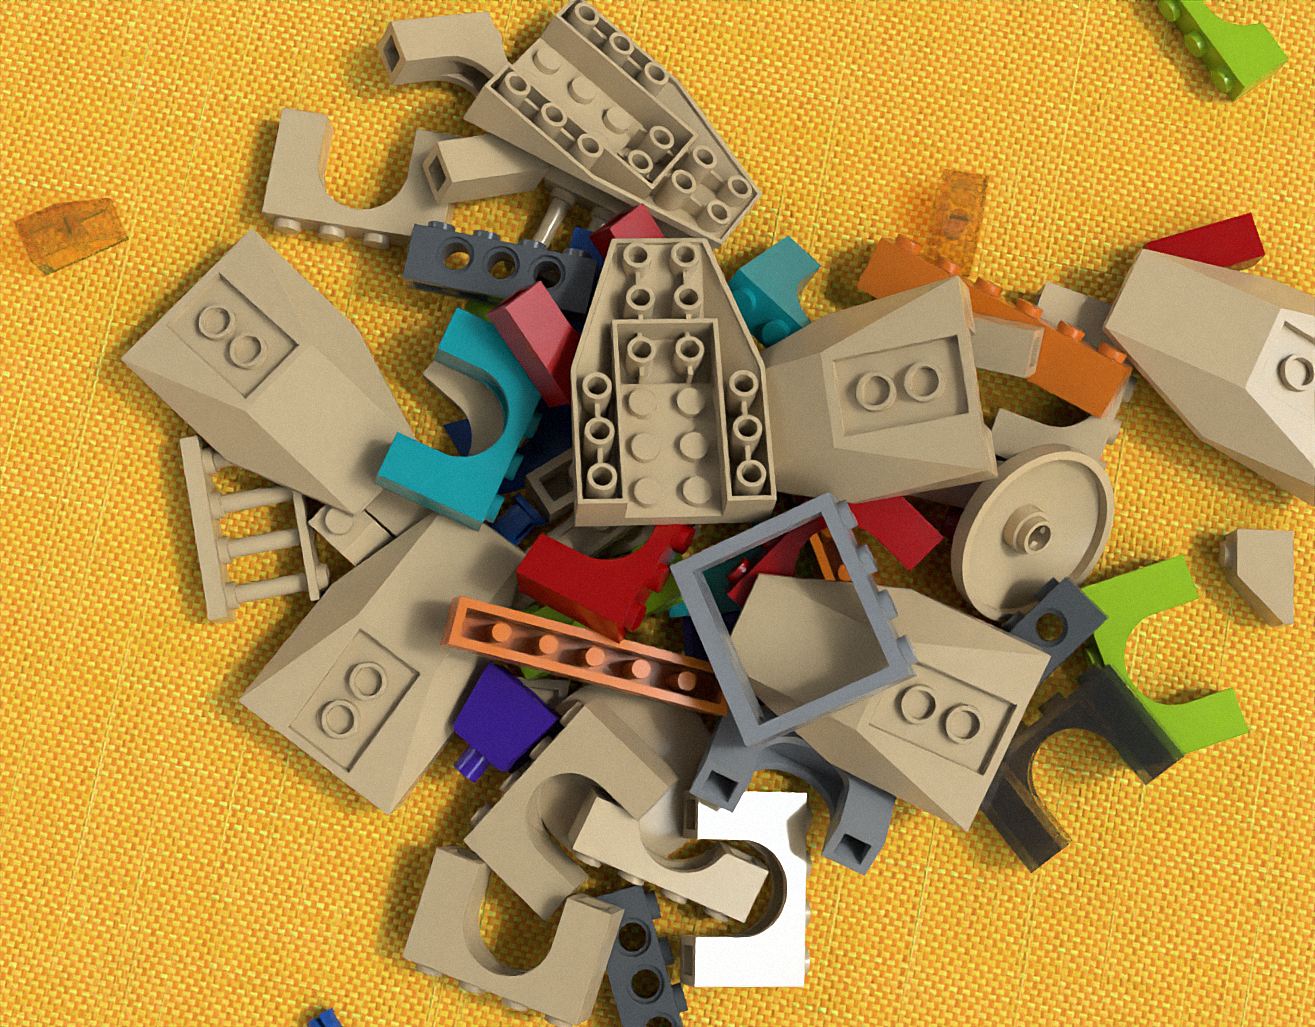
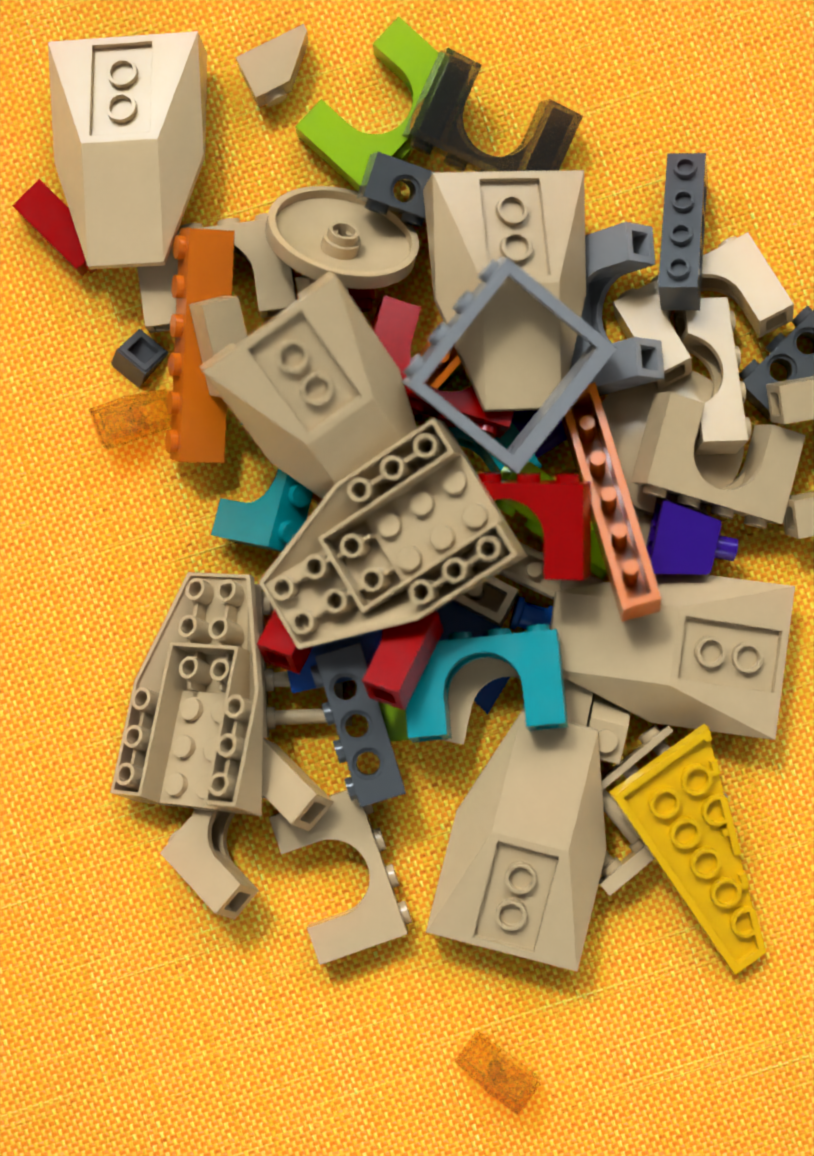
camera: 120 degrees left, 5 degrees up
(196, 554) = (690, 832): none -> yellow wing
(842, 911) = (683, 231): none -> dark grey brick
(1018, 265) = (138, 357): none -> dark grey slope

